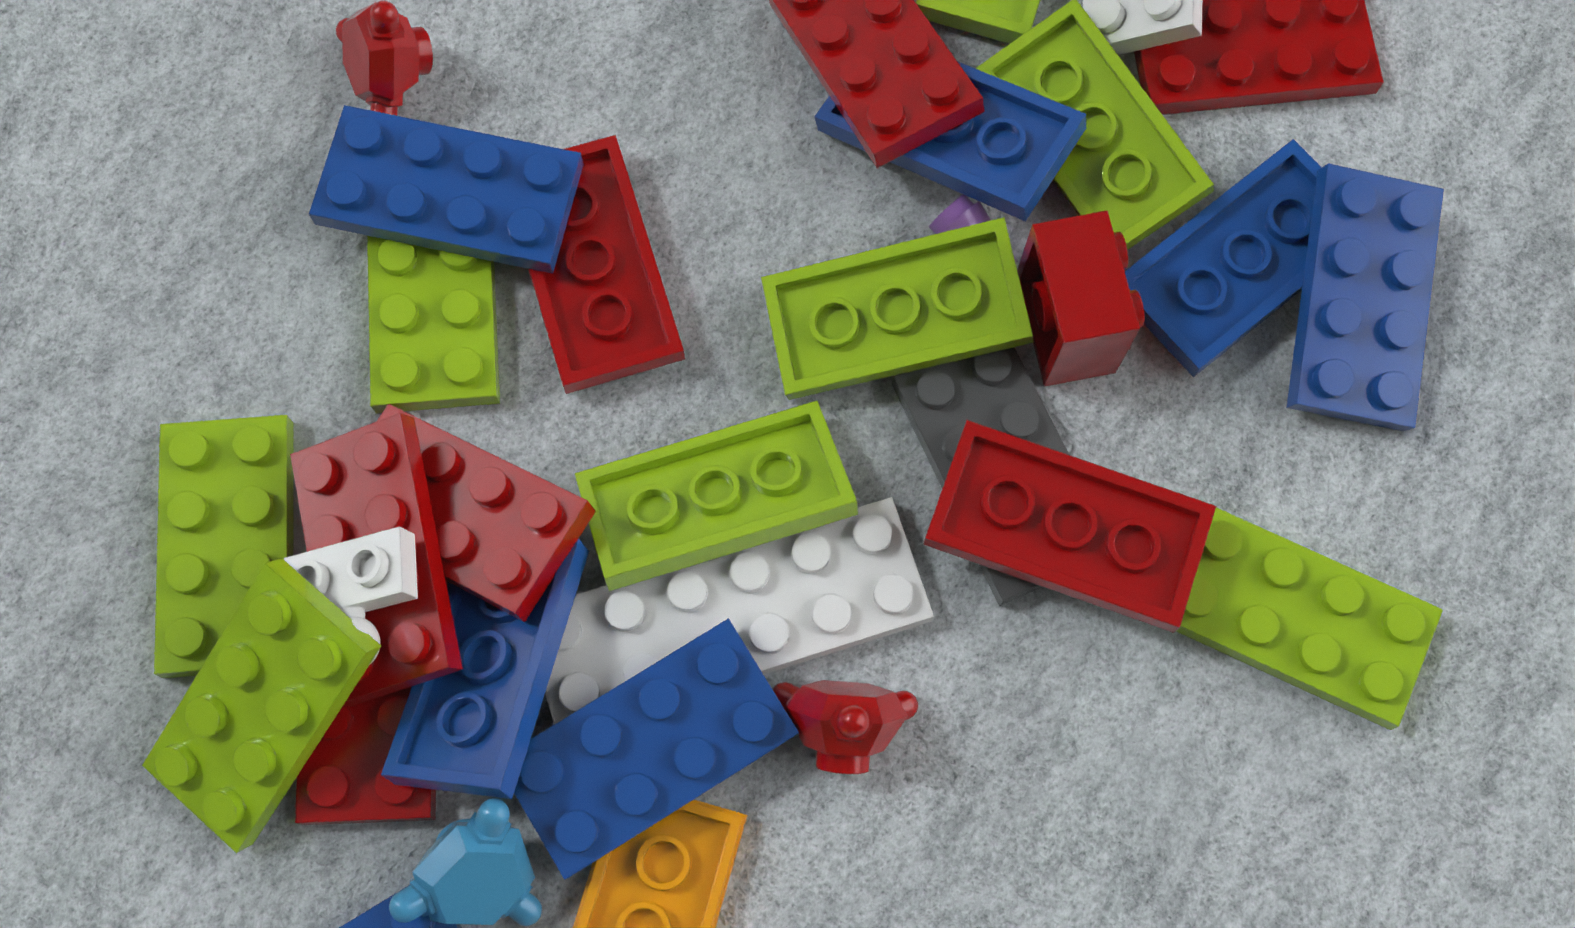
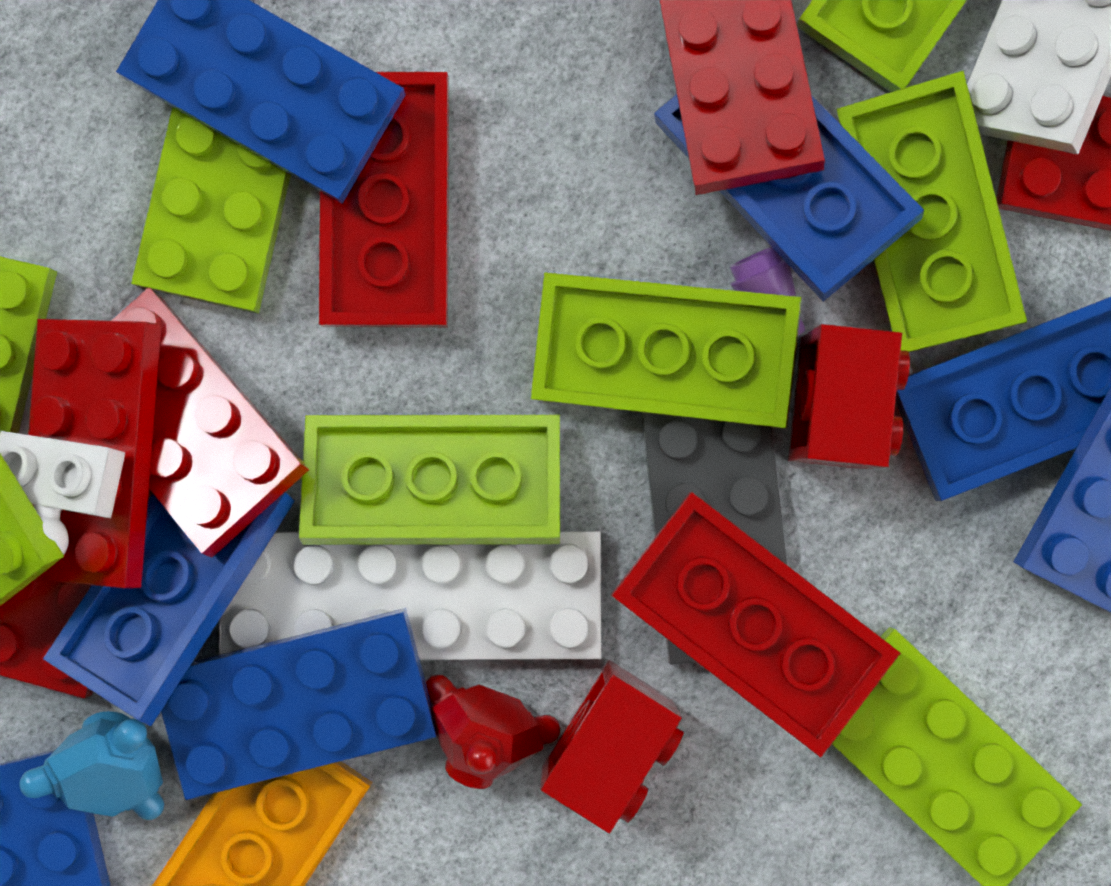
camera: 25 degrees right, 15 degrees up
(974, 681) = (611, 748): none -> red brick

